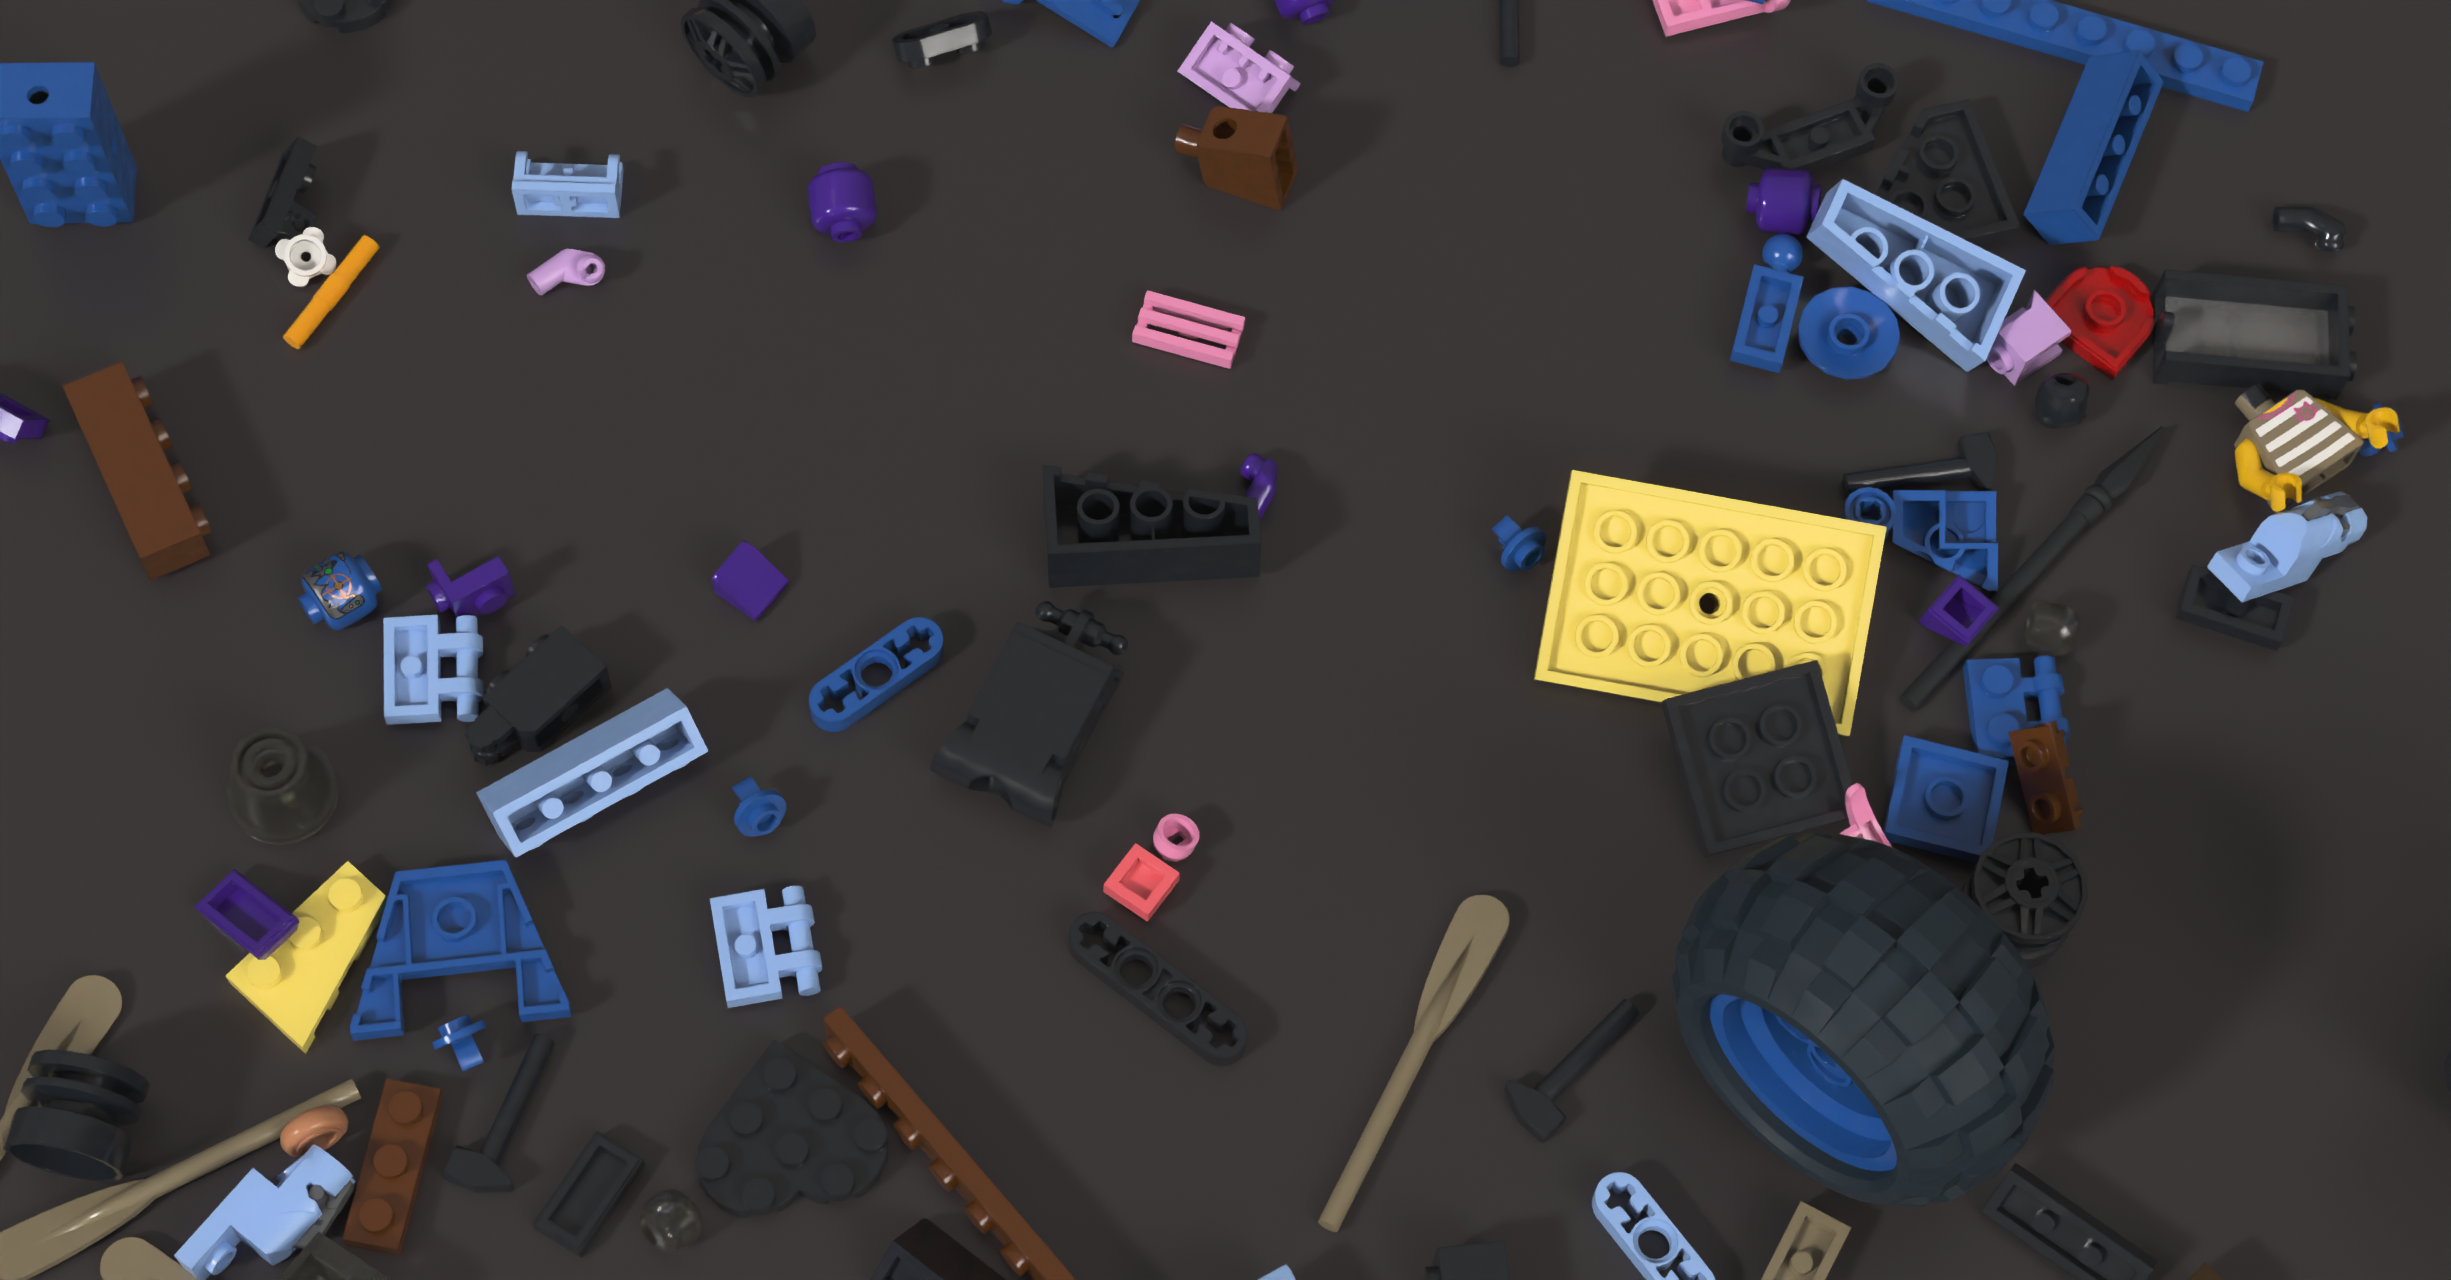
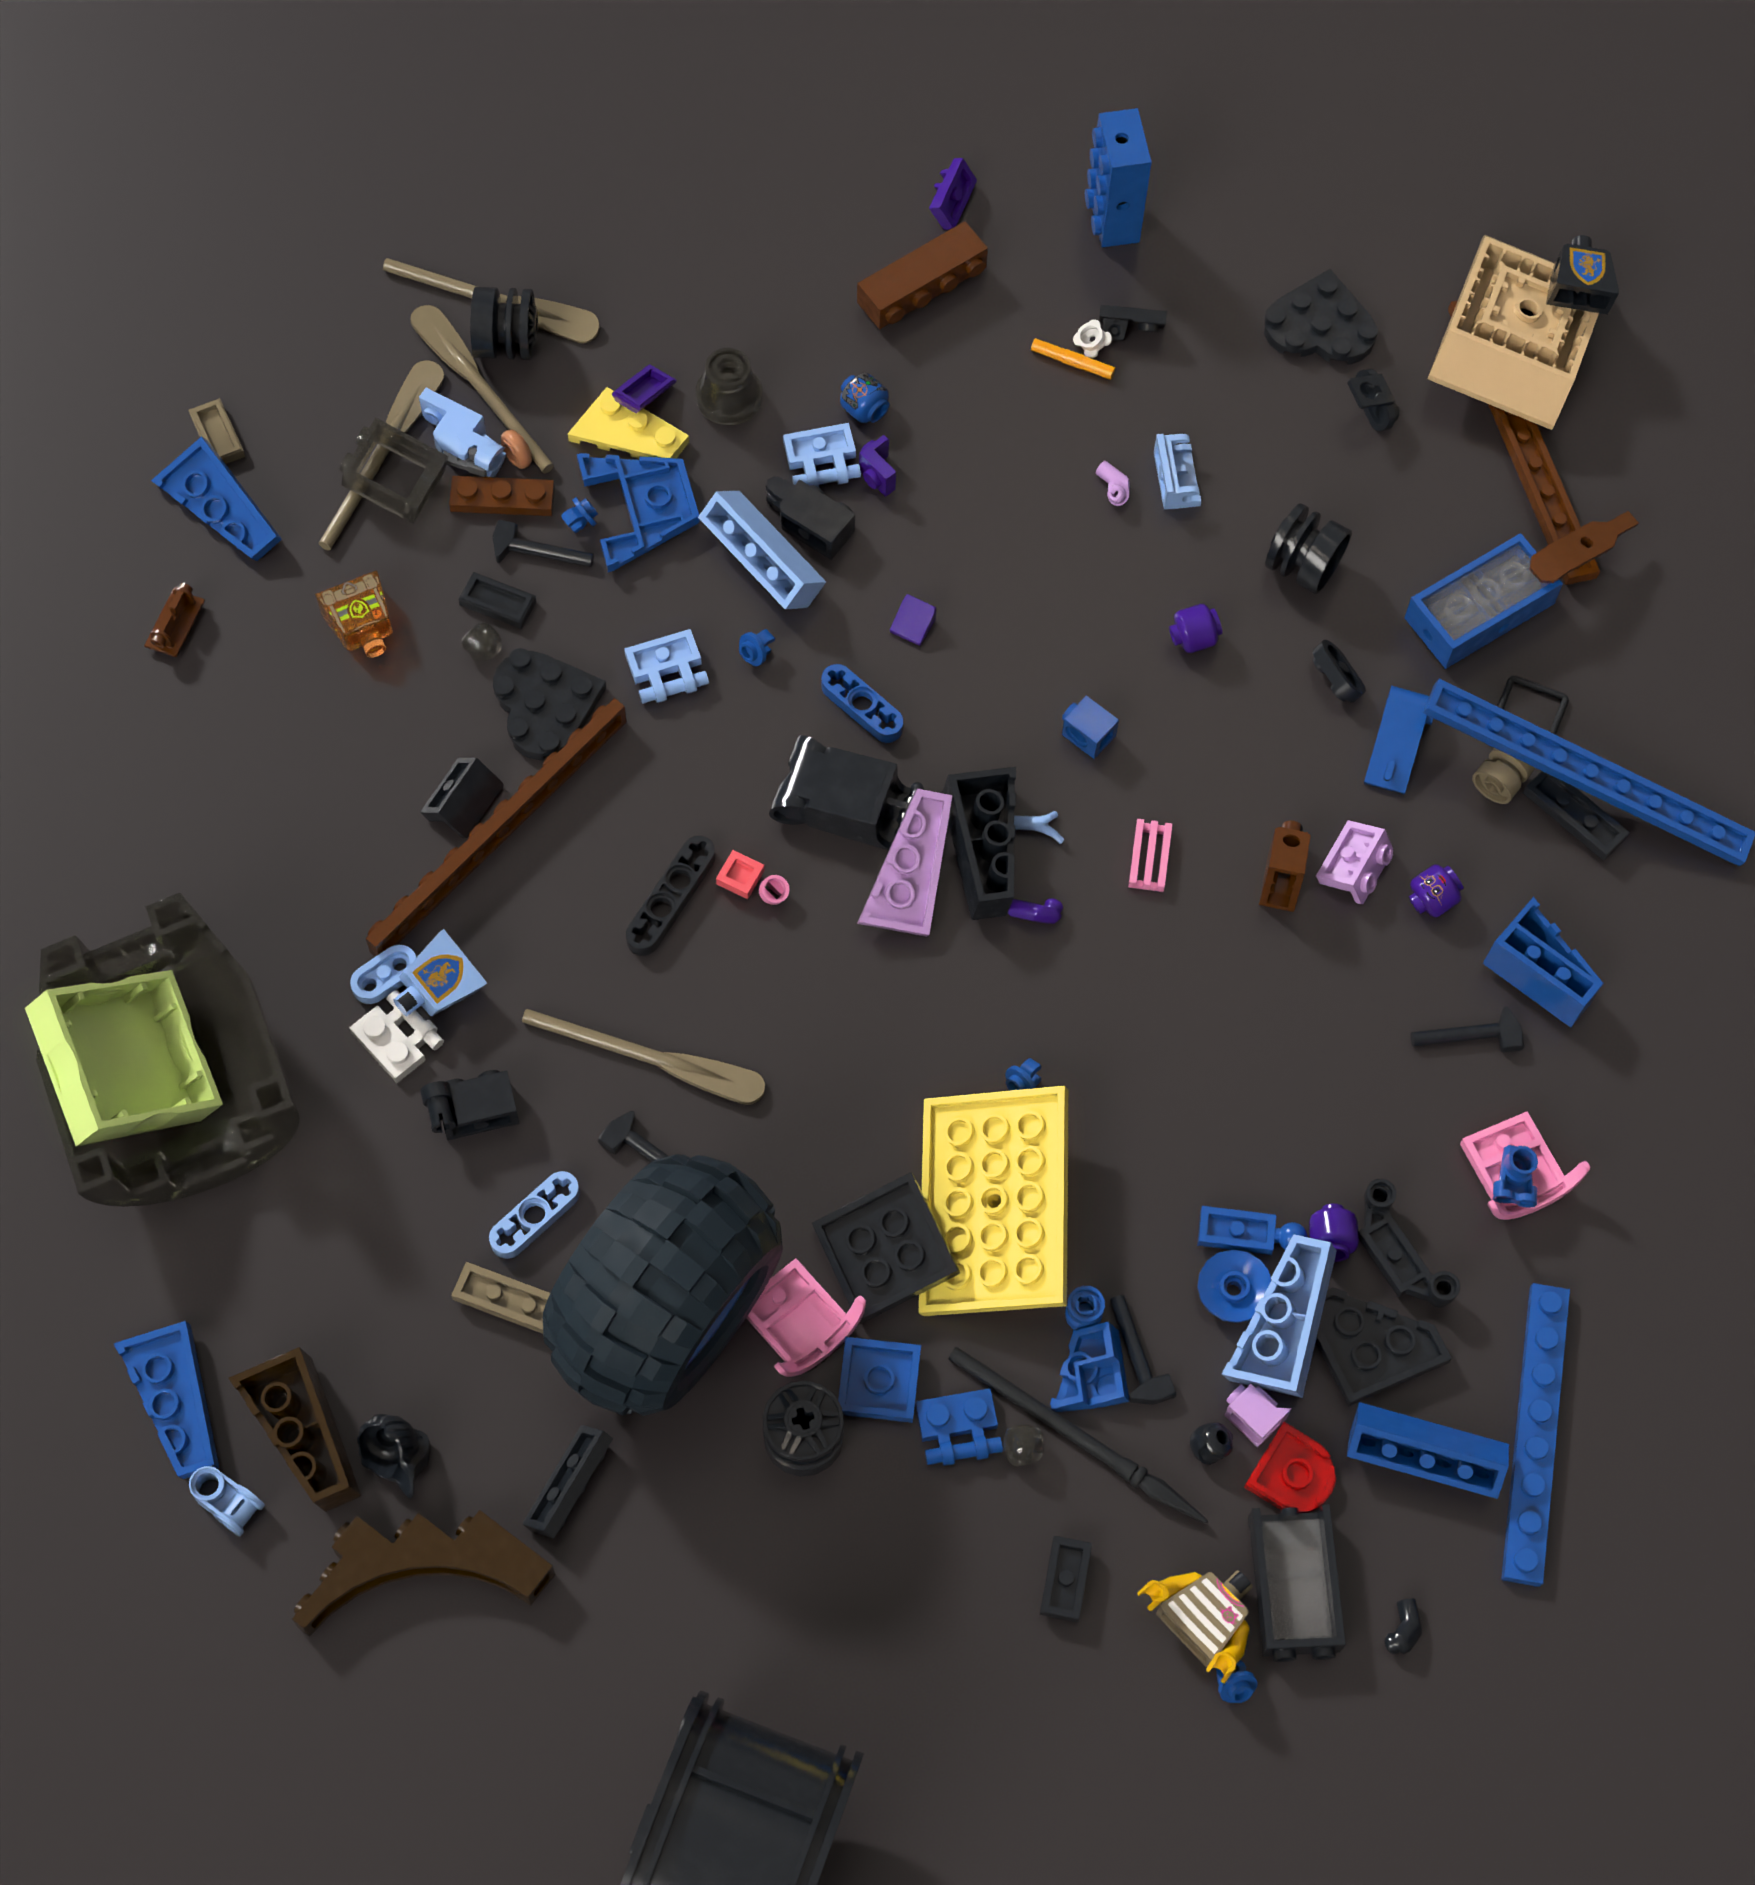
camera: 85 degrees right, 0 degrees up
(976, 368) = (1089, 726): none -> brick
(1119, 459) = (1038, 824): none -> light blue bar
(1184, 639) = (910, 874): none -> lavender wing
(1959, 612) = (1025, 1379): dark purple slope -> none
(2046, 789) = (890, 1451): reddish brown hinge -> none
(2289, 546) = (1116, 1609): light blue plate -> none

